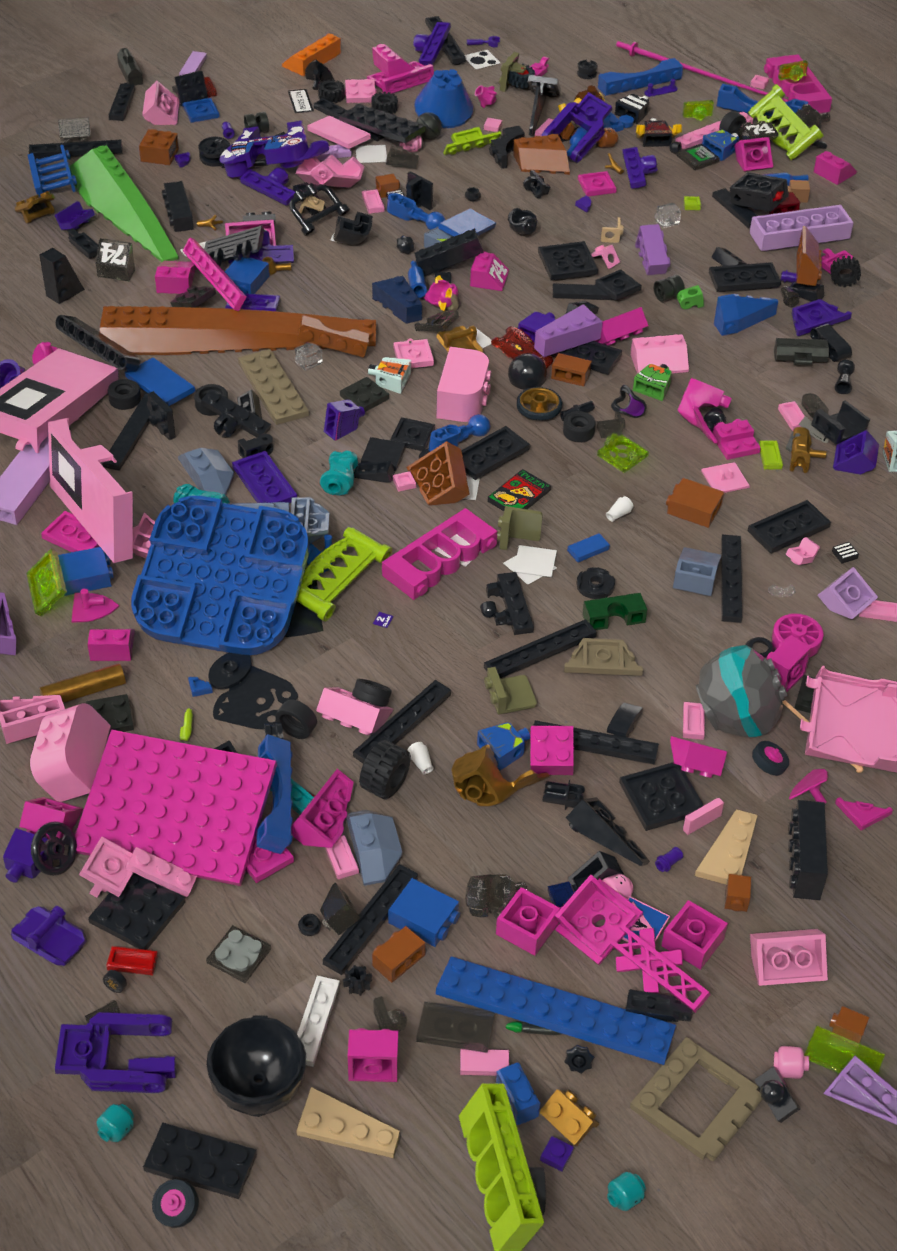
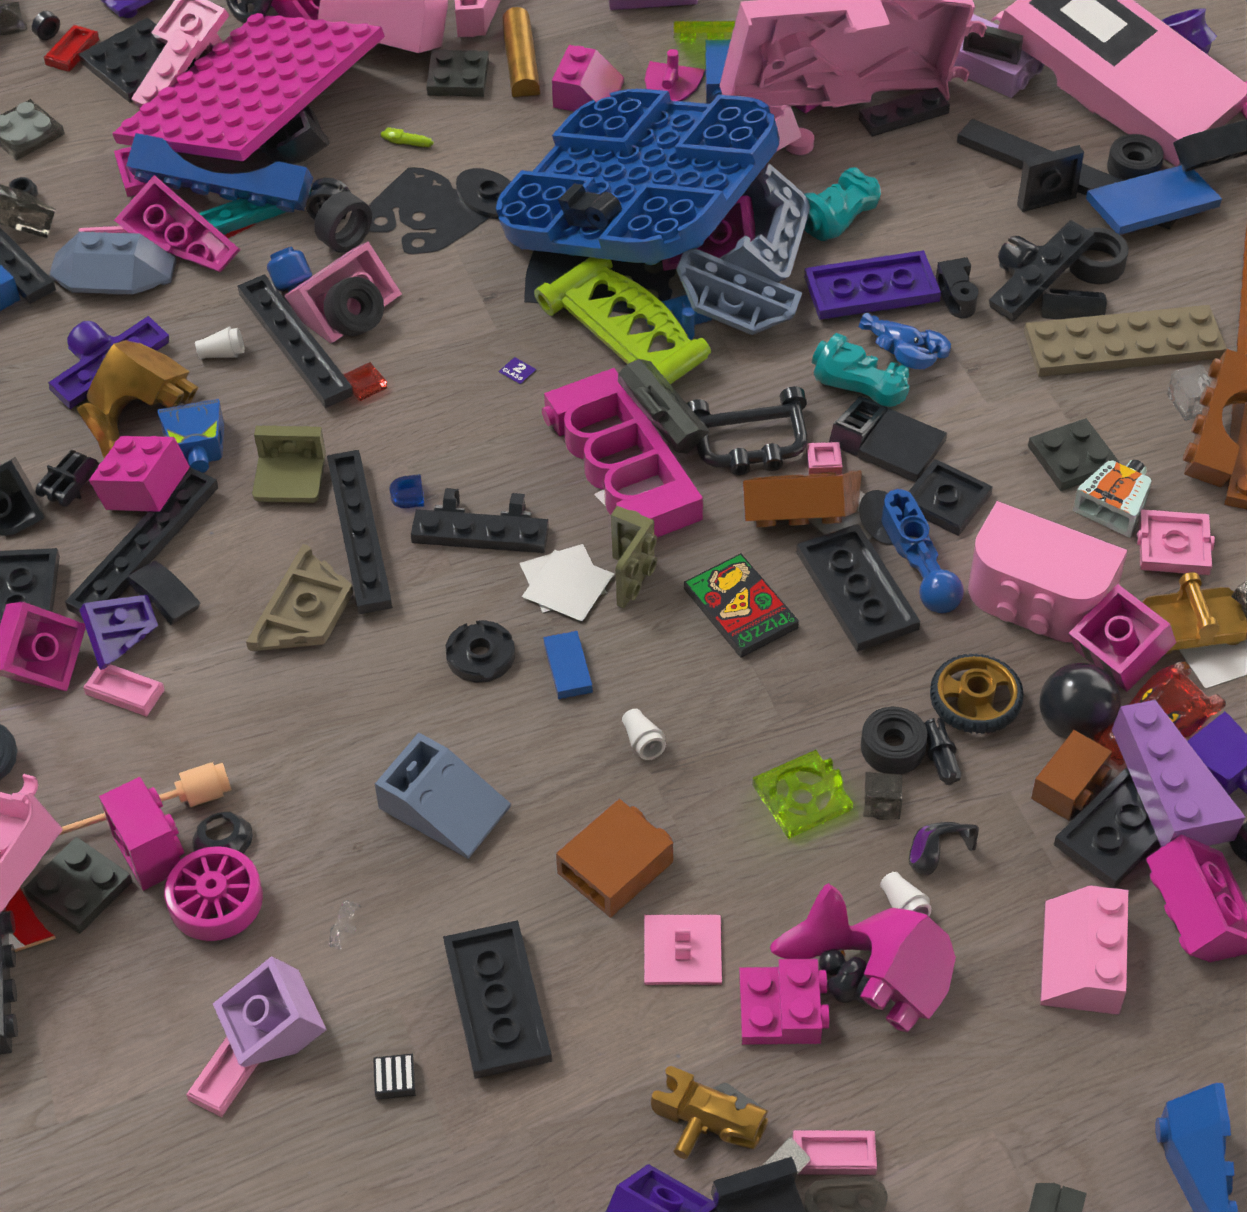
camera: 110 degrees right, 5 degrees up
(44, 450) = (995, 44): none -> pearl dark grey tile
(199, 687) = (471, 157): blue tile -> none
(207, 469) = (915, 220): sand blue wedge -> none
(271, 579) = (587, 208): none -> black leg
(308, 459) = (906, 342): none -> blue animal
(342, 418) = (994, 394): dark purple torso -> none
(347, 737) = (288, 269): none -> blue head
(385, 769) = (198, 281): black tyre -> none
(407, 533) = (662, 405): none -> pearl dark grey piece
(414, 498) = (771, 455): none -> black bar
(419, 682) = (366, 381): none -> clear red tile
(456, 812) = (90, 346): none -> dark purple plate
(473, 487) = (777, 545): white sticker -> none
(488, 609) = (474, 490): black hinge -> none
(497, 351) = (1122, 637): none -> dark pink brick
(499, 641) = (407, 492): none -> clear blue tile
(629, 607) = (392, 670): dark green arch -> none
(653, 381) = (1002, 912): bright green torso -> none
(661, 727) = (117, 626): none -> wing
(664, 410) = (904, 895): none -> white cone
(731, 579) = (410, 856): black plate -> none
(741, 692) = (96, 721): dark grey rock -> none
(770, 455) = (722, 1055): lime tile -> none
(804, 553) = (411, 986): bright pink bracket -> none

